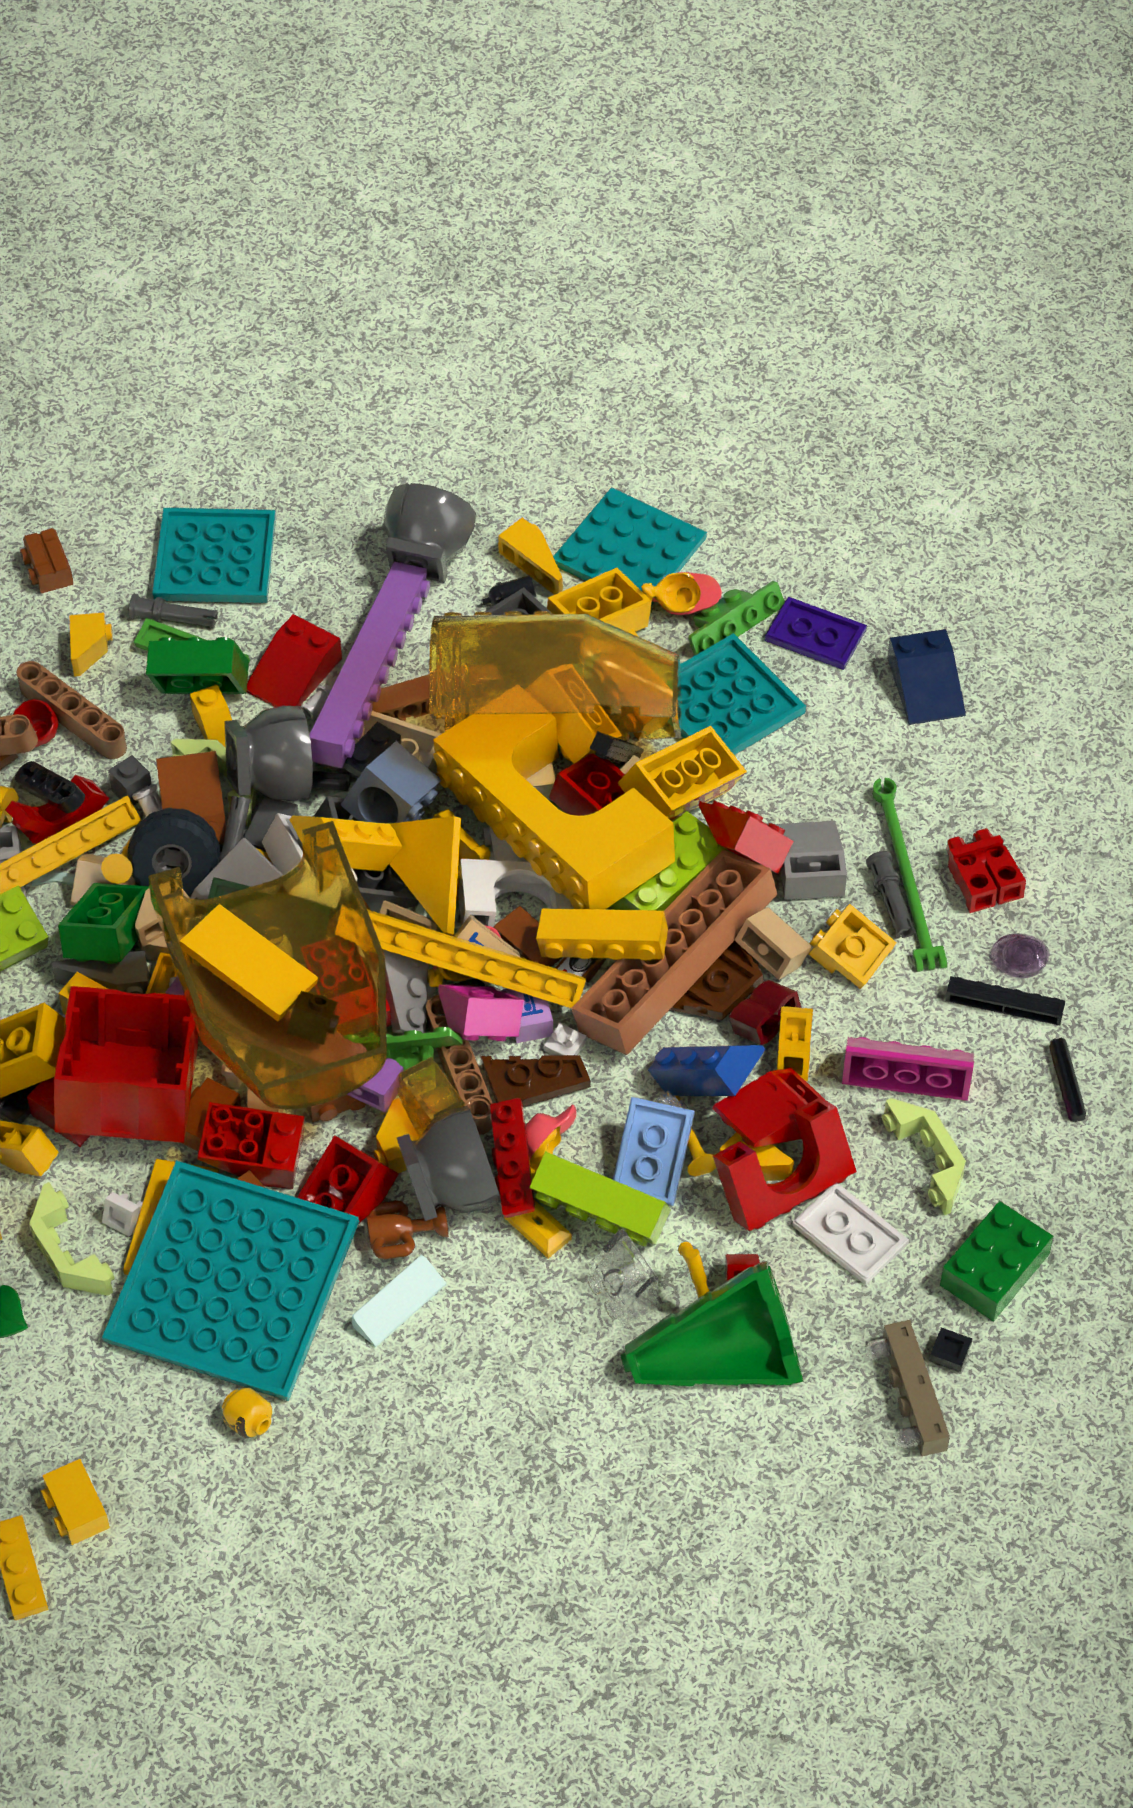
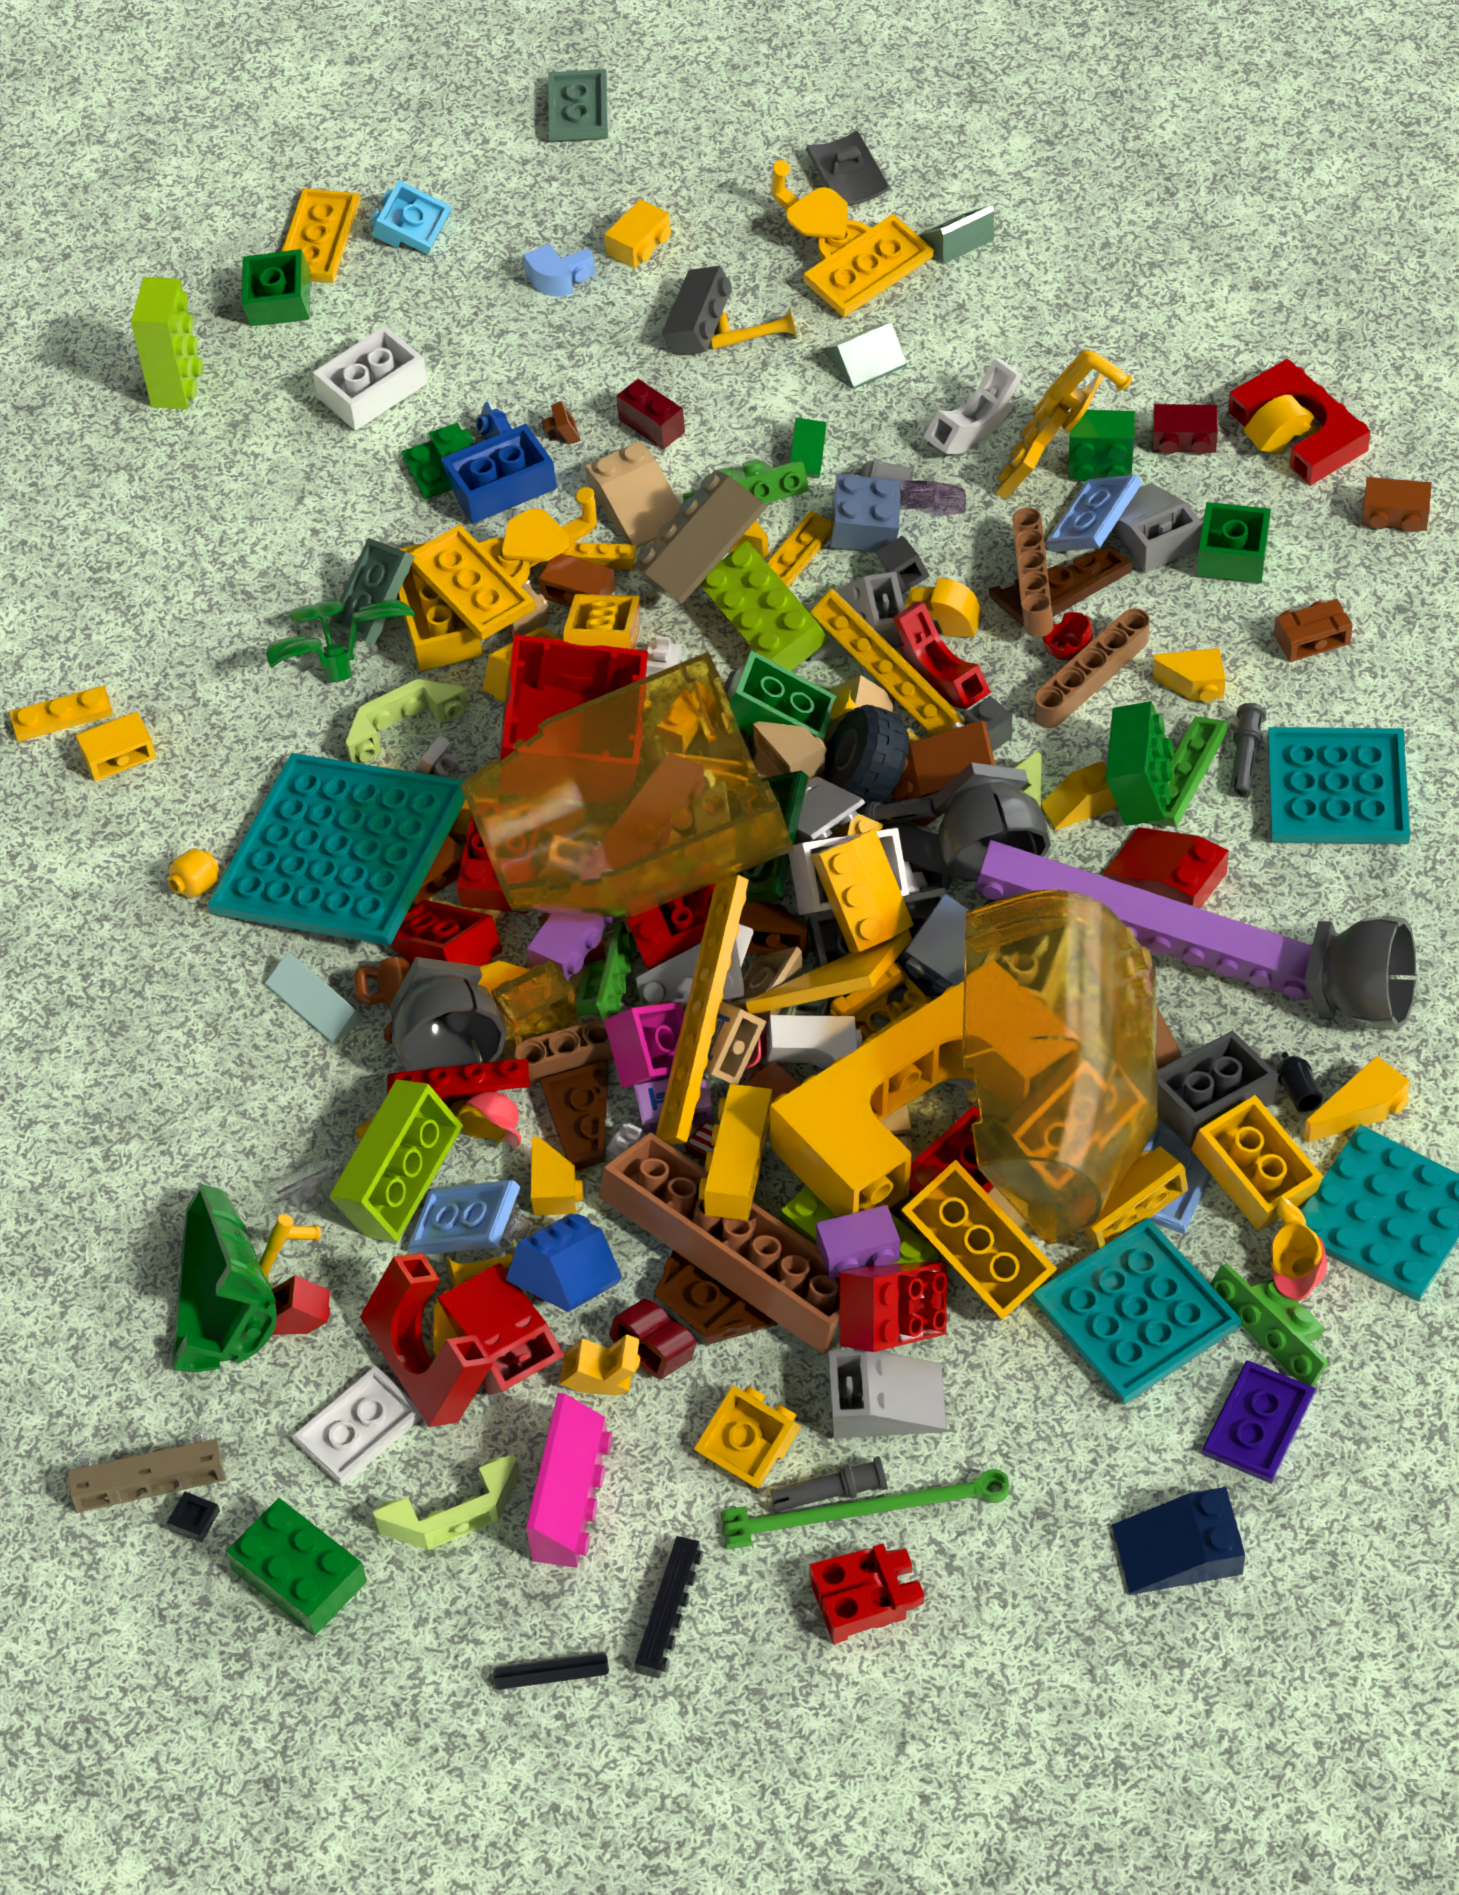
camera: 95 degrees right, 0 degrees up
(50, 787) = (965, 647): black beam -> none
(248, 962) = (667, 793): yellow tile -> none
(313, 1017) = (600, 854): dark brown brick -> none
(604, 1093) = (553, 1181): none -> yellow slope
(694, 849) = (858, 1241): none -> medium lavender brick
(773, 943) = (748, 1347): tan brick -> none
(1020, 955) = (738, 1630): clear purple hat -> none

